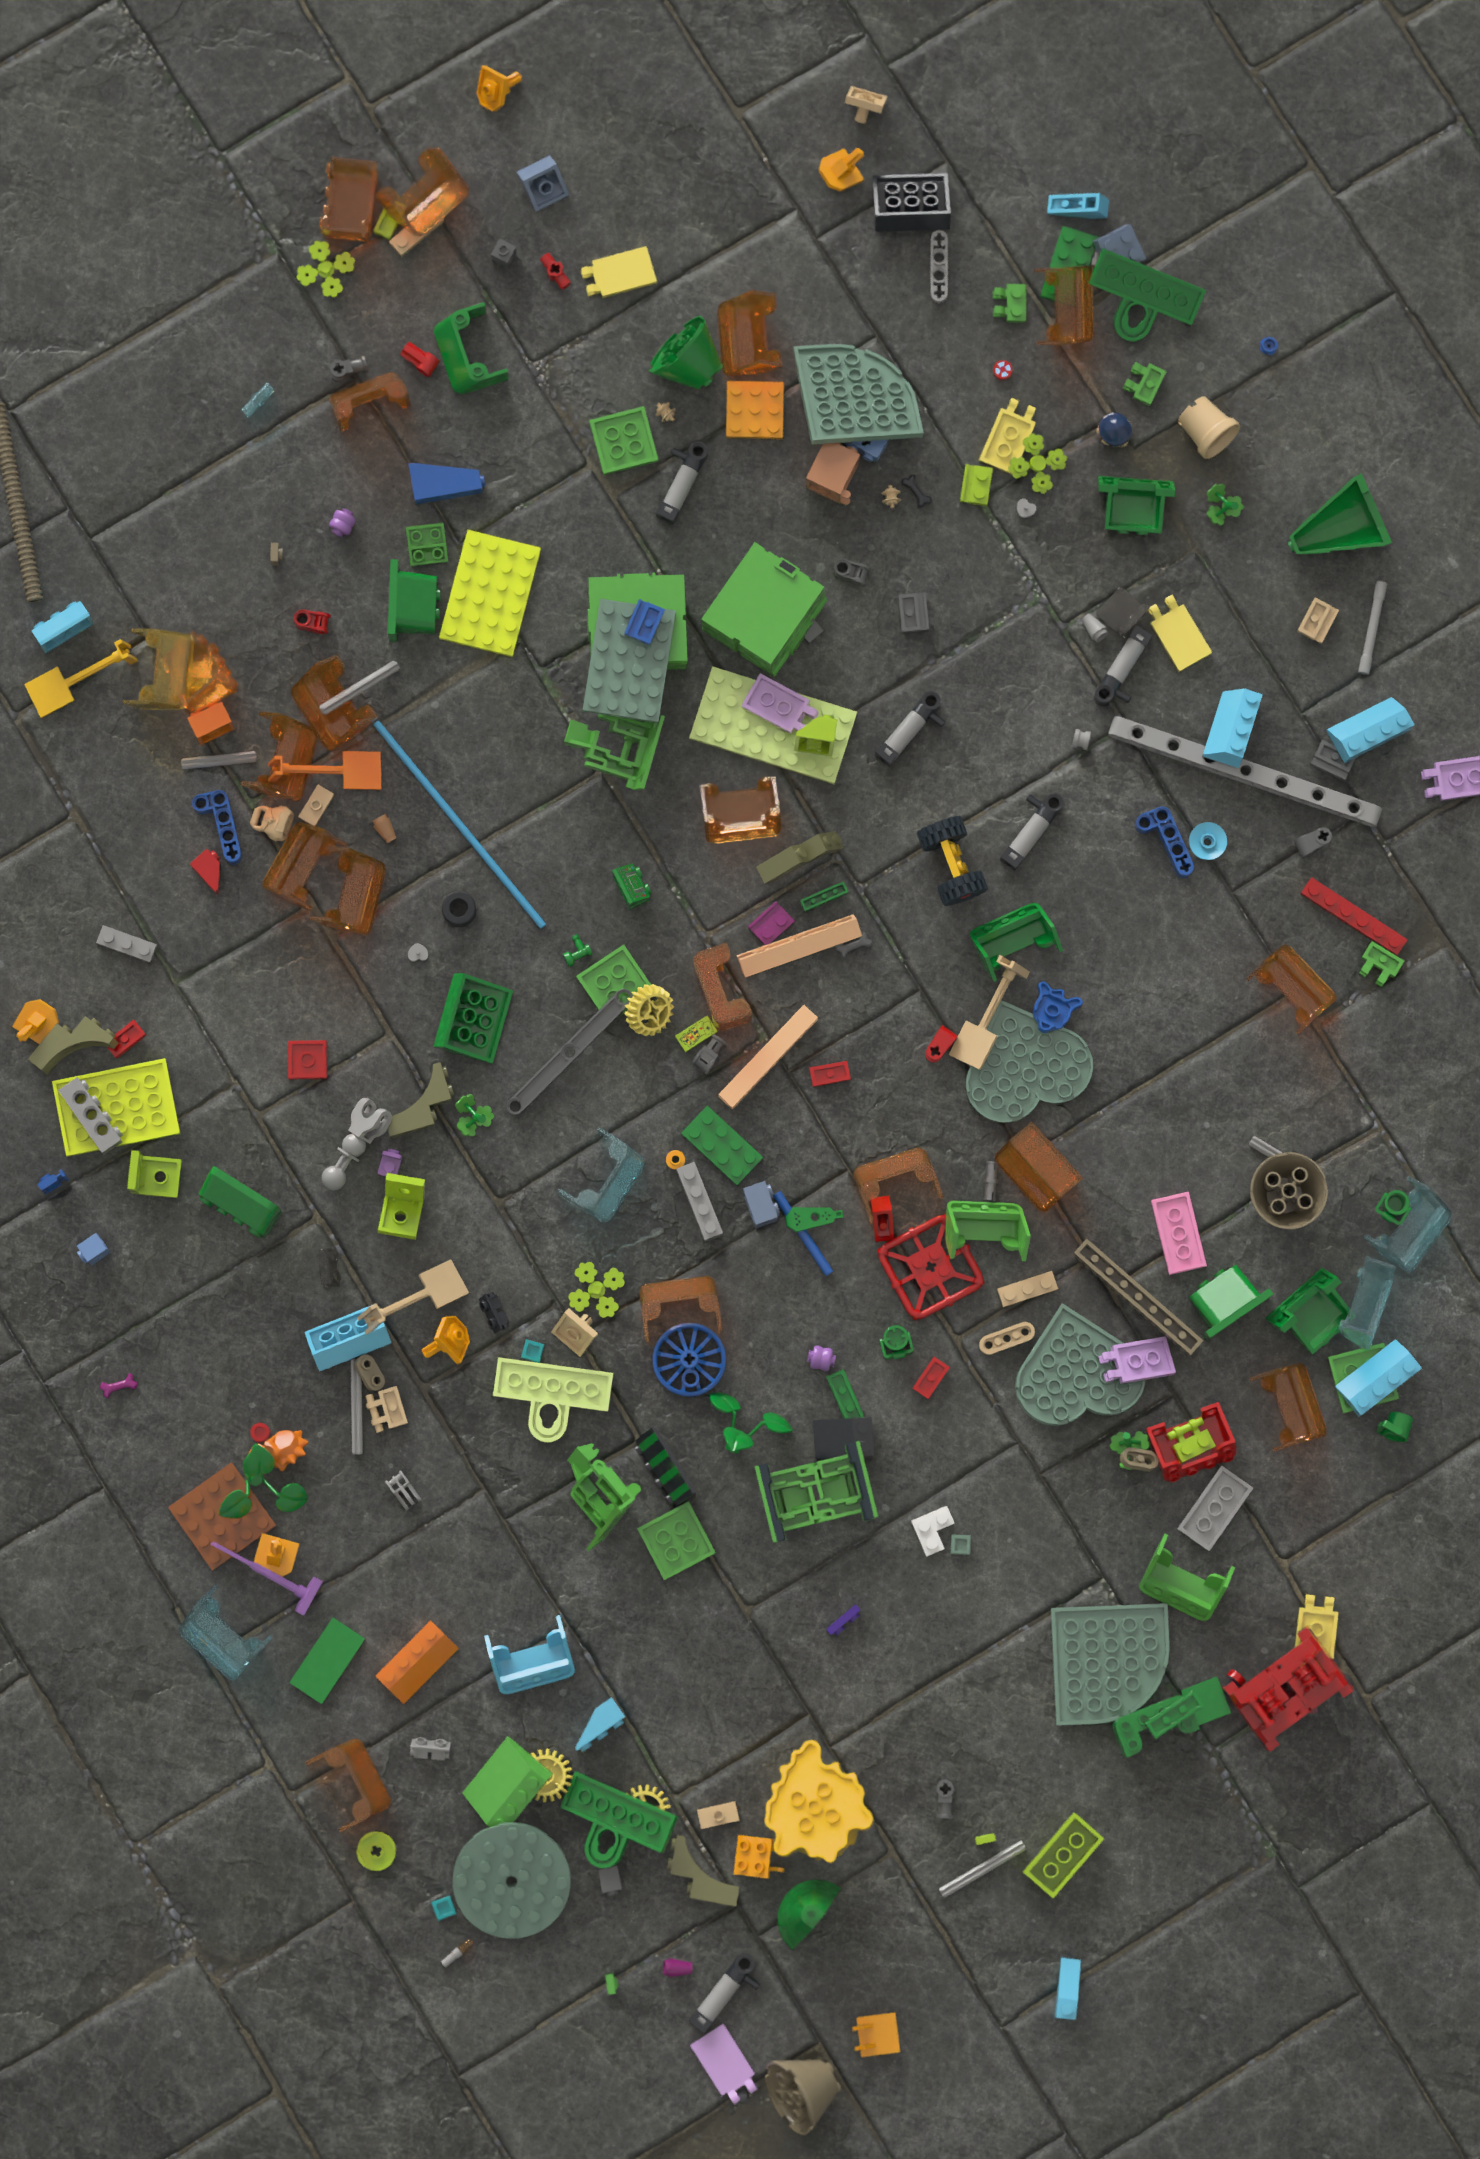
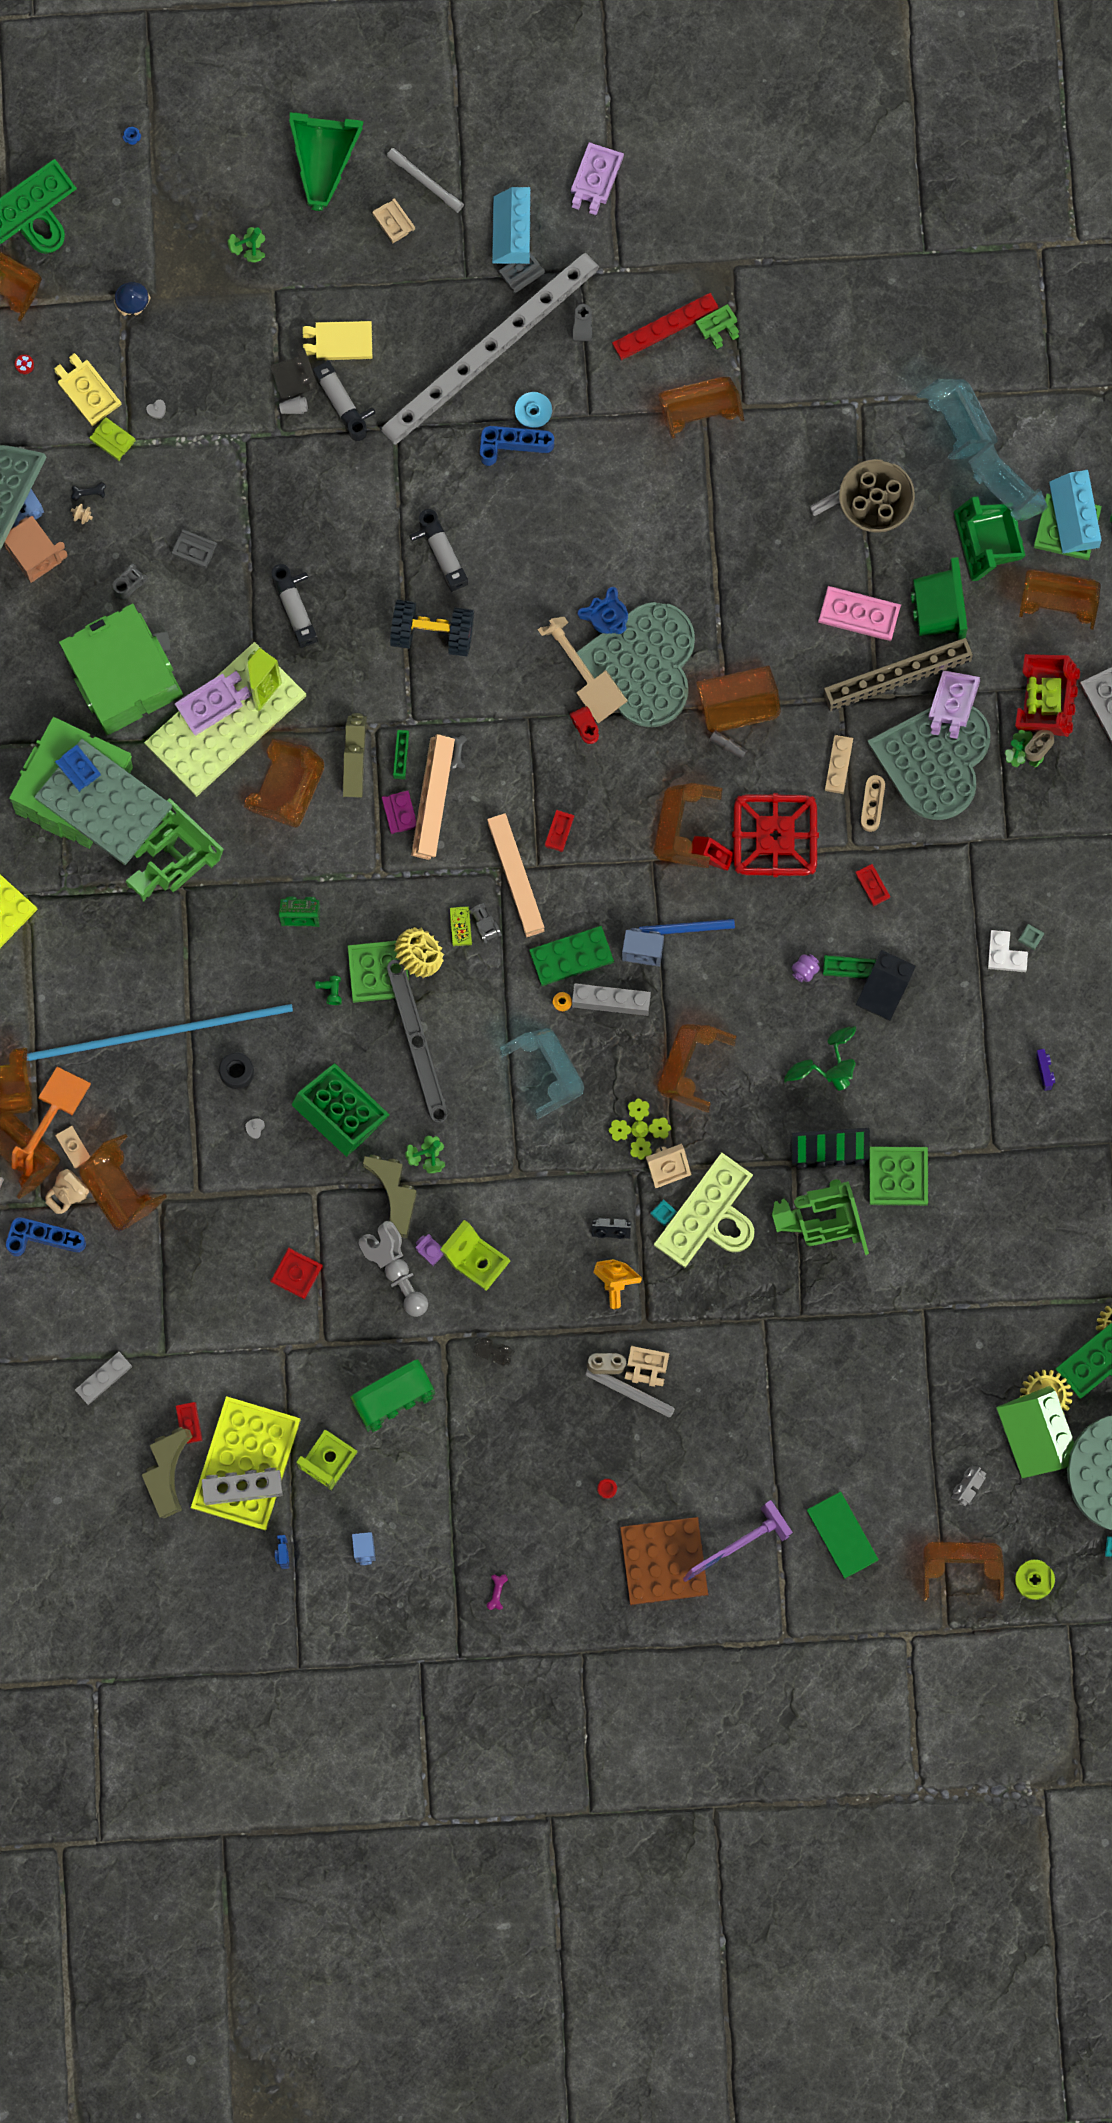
camera: 55 degrees left, 5 degrees down
(35, 1021) = (129, 1493): light orange piece -> none
(208, 868) = (78, 1270): red slope -> none
(218, 1640) = (776, 1621): clear light blue windscreen -> none
(255, 1464) = (637, 1495): green plant -> none
(276, 1554) = (724, 1529): light orange piece -> none
(286, 1447) = (633, 1476): orange head -> none
(344, 1340) = (564, 1366): medium azure slope -> none
(359, 892) = (172, 1150): clear orange windscreen -> none
(384, 828) = (128, 1097): medium nougat cone -> none
(402, 1489) = (729, 1388): light grey arm -> none
(417, 1662) = (885, 1456): orange slope -> none
(440, 1283) = (563, 1259): tan piece -> none
(532, 1665) = (943, 1353): medium azure windscreen -> none
(603, 1718) = (1022, 1318): medium azure slope -> none
(689, 1369) = (751, 1086): blue piece -> none
(706, 968) = (433, 888): clear orange windscreen -> none
(805, 1217) = (674, 917): green piece -> none
(837, 1494) = (926, 1014): bright green container -> none
(895, 1340) = (823, 897): green piece -> none
(986, 1222) = (764, 763): bright green windscreen -> none
(1013, 933) = (522, 611): green windscreen -> none
(1037, 463) = (123, 377): lime plant -> none
(1081, 739) = (385, 468): light grey wheel -> none
(1135, 503) = (206, 314): green windscreen -> none
(1148, 385) = (107, 249): bright green plate -> none
(1208, 427) = (175, 219): tan piece -> none
(1232, 726) = (446, 335): medium azure slope -> none
(1394, 1205) = (933, 422): green piece -> none

